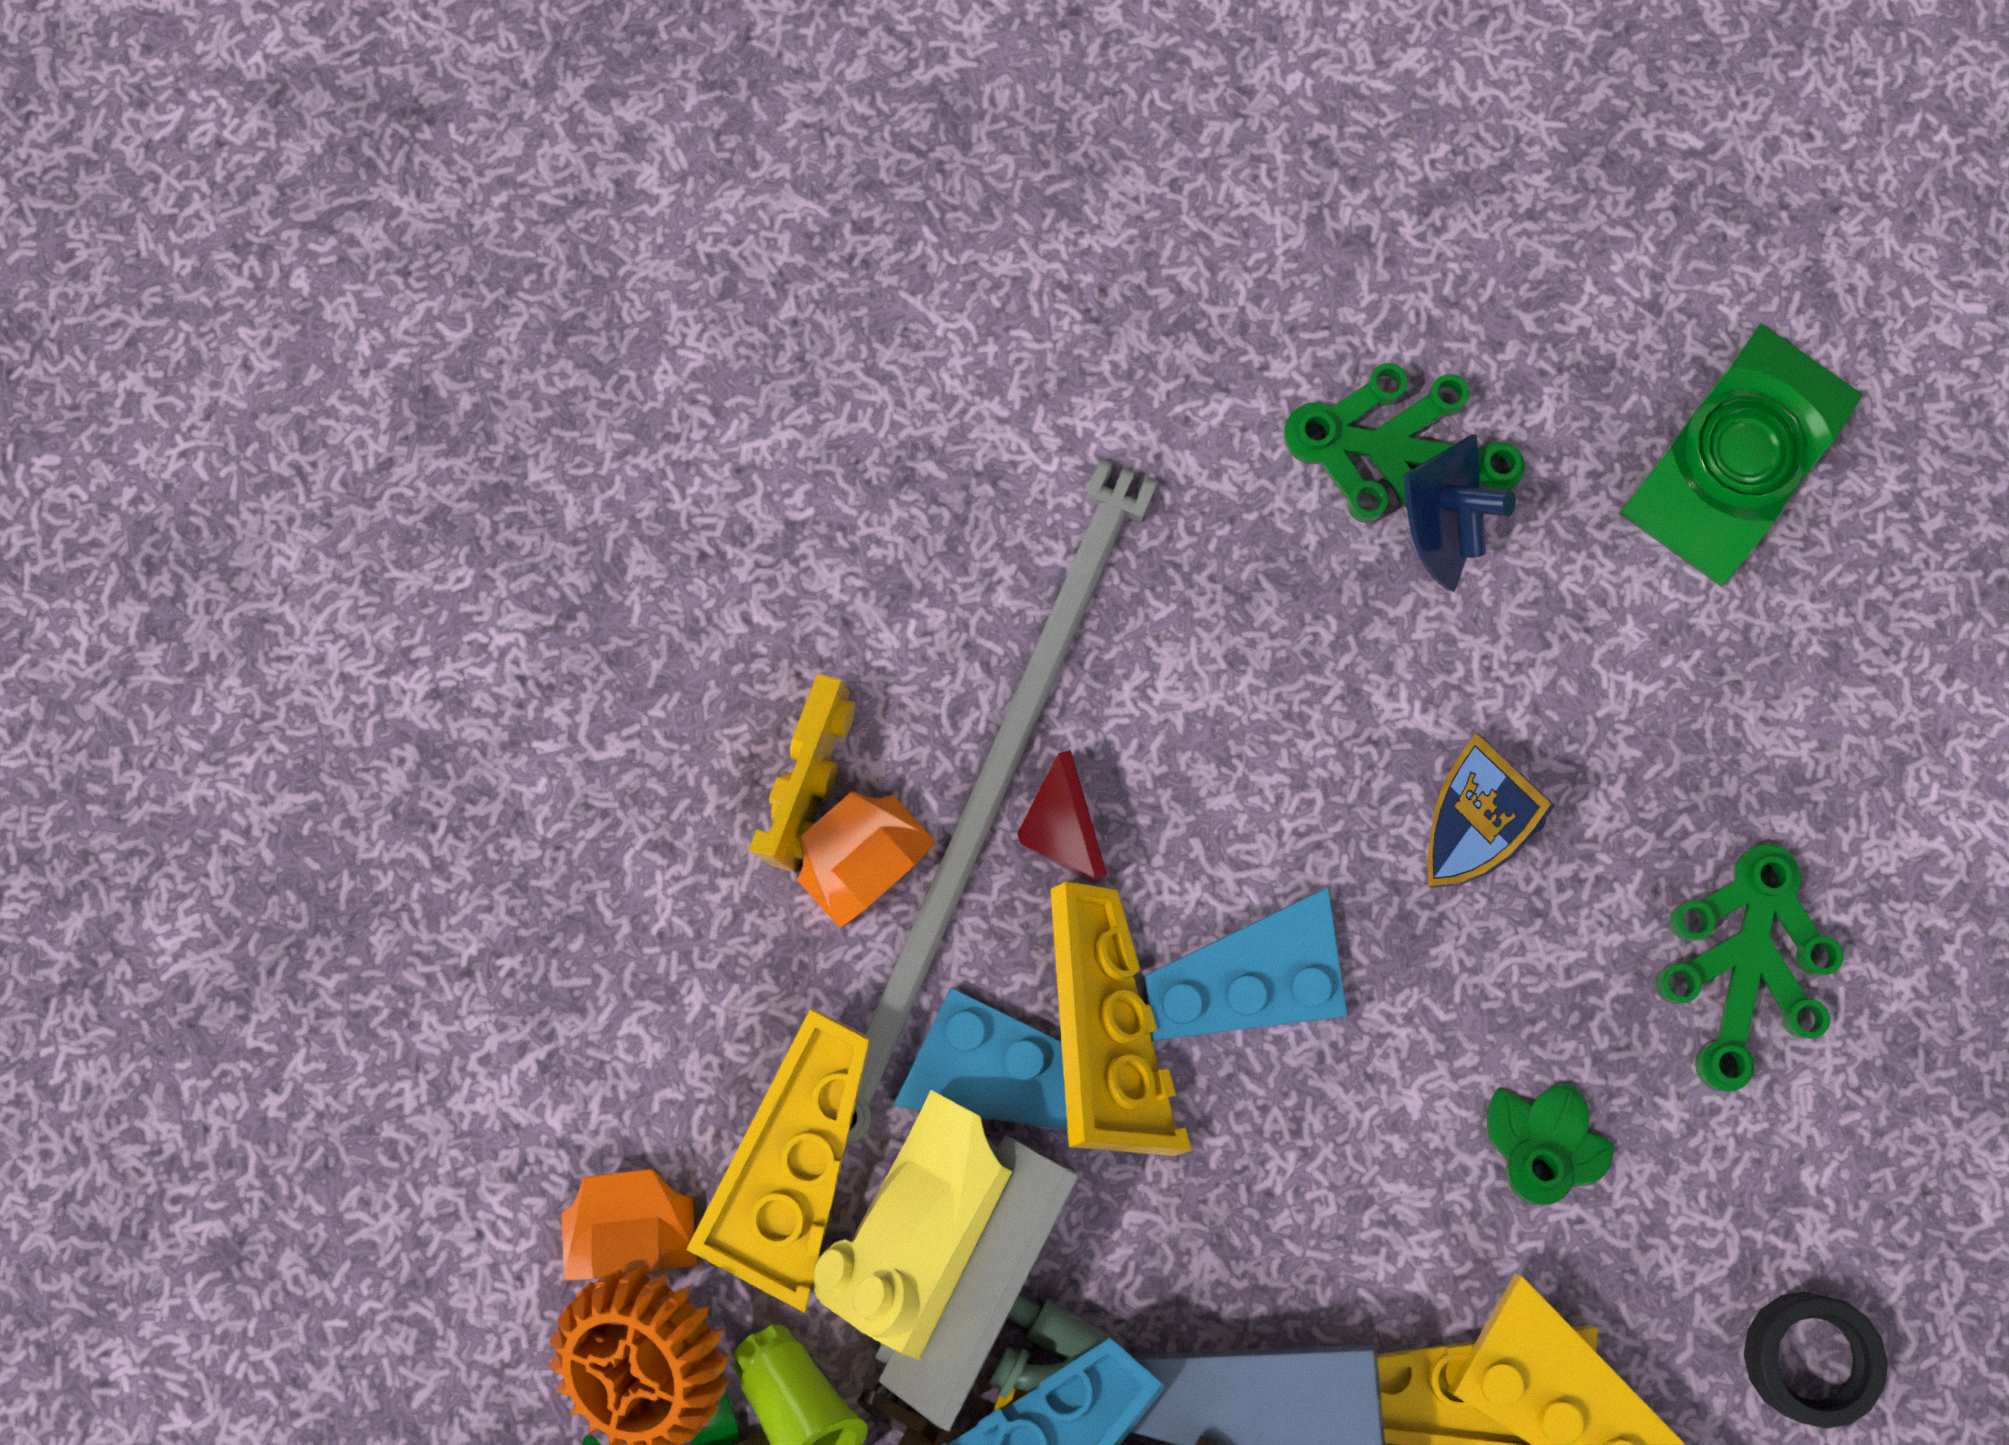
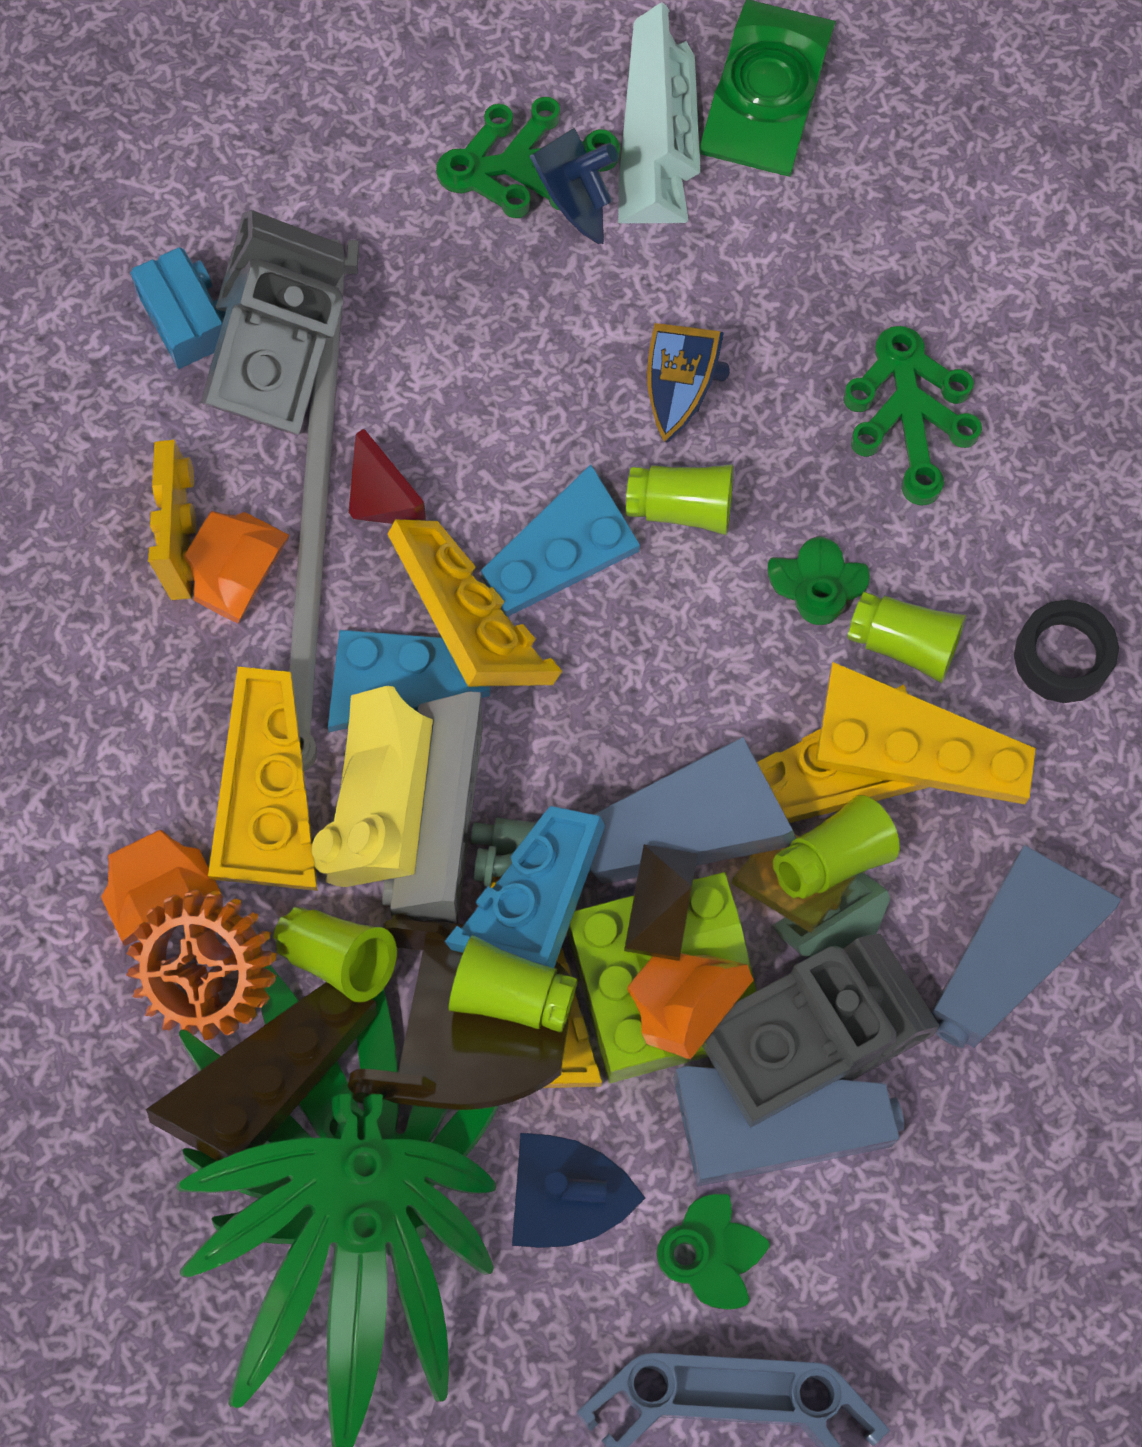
camera: 25 degrees left, 10 degrees down
(914, 498) = (180, 305): none -> dark azure brick
(1017, 570) = (275, 322): none -> dark grey piece
(1424, 977) = (682, 495): none -> lime plant
(1584, 458) = (659, 124): none -> light aqua wedge
(1631, 1265) = (907, 633): none -> lime plant

